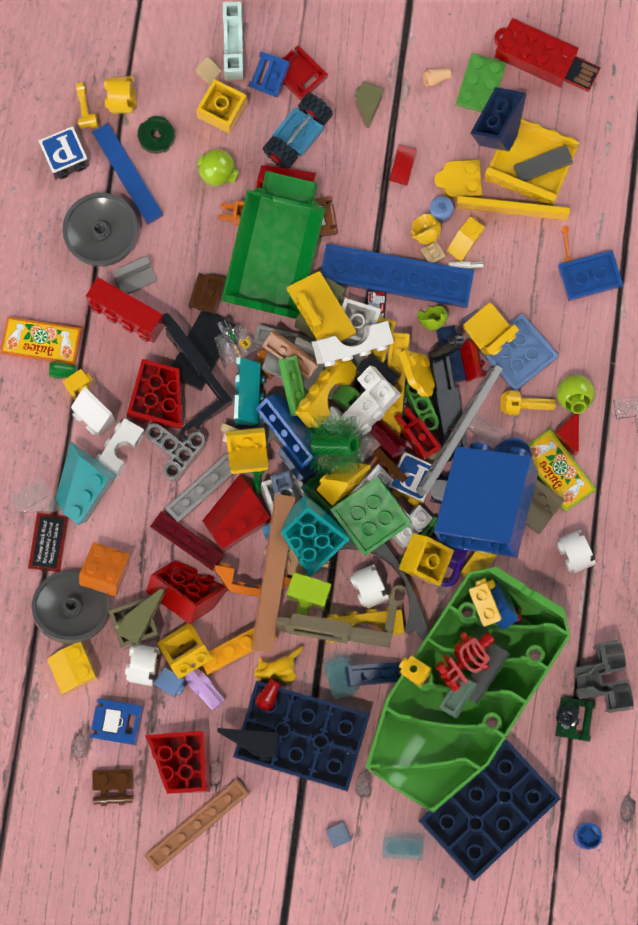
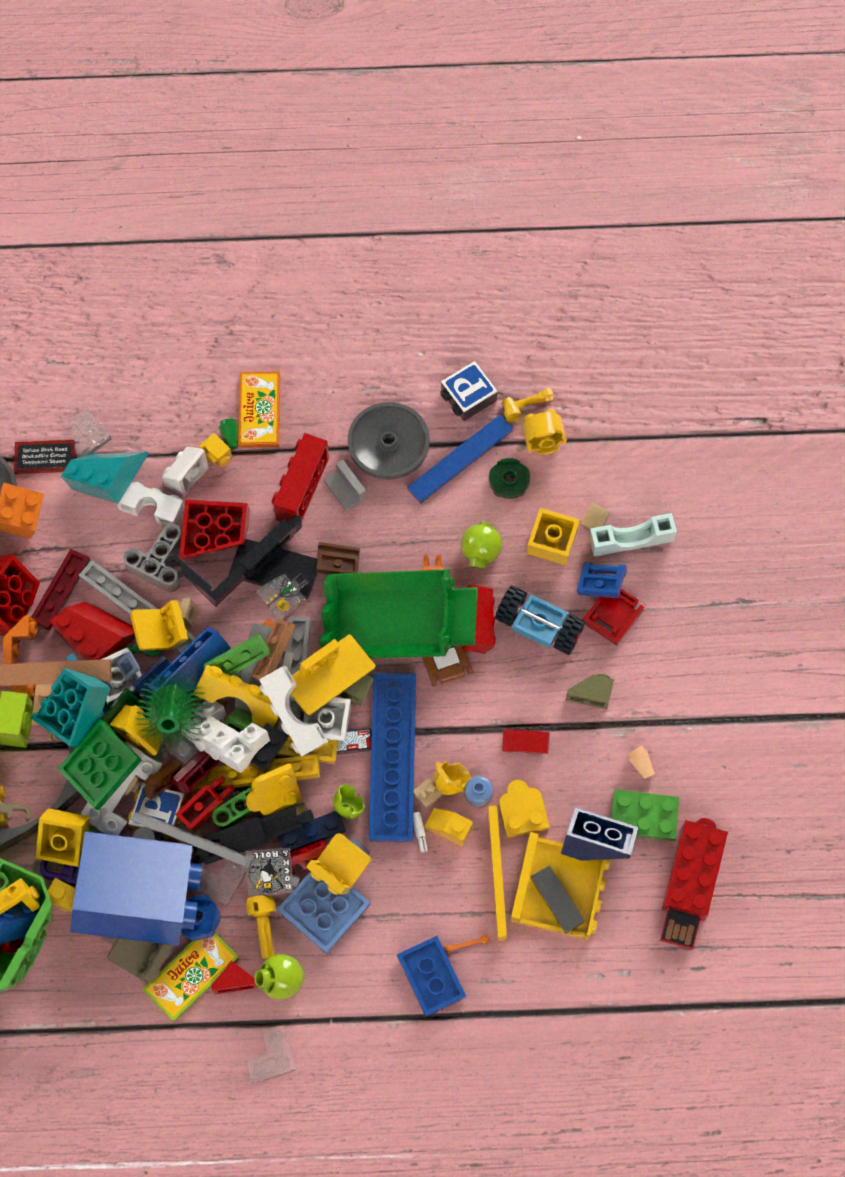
camera: 80 degrees right, 10 degrees down
(248, 393) = (228, 616): teal wedge -> none
(370, 586) = (27, 782): white brick -> none
(488, 386) = (269, 871): none -> tile
(576, 551) = (92, 1005): white brick -> none

